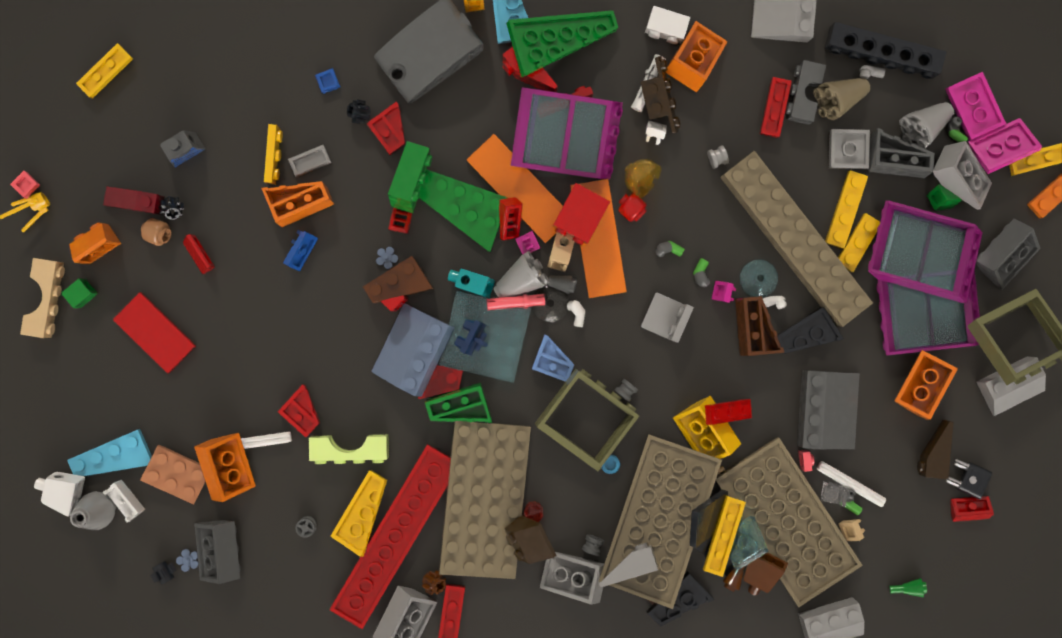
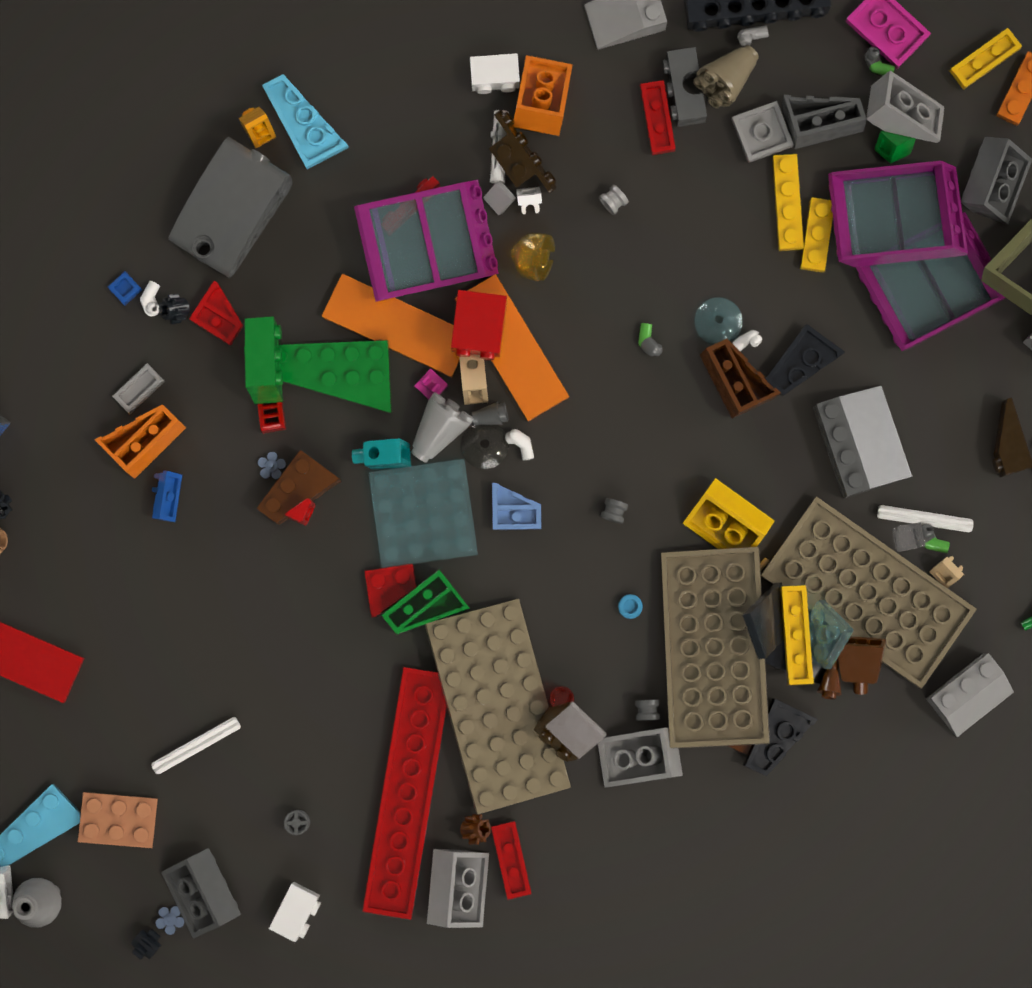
camera: 20 degrees left, 5 degrees down
(124, 500) = (67, 876): white hinge -> none
(198, 253) = (46, 548): red slope -> none
(225, 467) = (173, 786): orange slope -> none
(273, 154) = (93, 397): yellow plate -> none
(279, 591) = (295, 911): none -> white brick
(300, 412) = (238, 687): red wing -> none
(325, 449) = (282, 719): yellowish green arch -> none
(342, 97) = (148, 299): none -> white arm
(359, 517) = (356, 782): yellow wing -> none
(412, 350) = (344, 560): sand blue slope -> none
(474, 339) = (411, 518): dark blue hips -> none
(507, 207) = (390, 351): red slope -> none
(515, 302) = (443, 457): coral pin -> none
(539, 79) = (350, 183): red slope -> none
(550, 38) = (366, 138): green wing -> none
(615, 438) = (602, 525): olive window -> none
(632, 207) = (536, 295): red head -> none
(633, 122) = (499, 197): none -> light grey tile
(637, 563) = (701, 706): light grey slope -> none
(667, 247) = (597, 325): arm -> none
(667, 317) = (627, 407): light grey bracket -> none
(723, 291) = (681, 352): dark pink tile -> none
(728, 411) = (743, 488): red plate -> none
(796, 239) = (742, 258): dark tan brick -> none
(806, 460) = (859, 511): coral plate -> none
(925, 124) = (838, 69): light grey cone -> none
(925, 385) = (960, 367): orange slope -> none
(1004, 145) = (938, 59): dark pink plate -> none

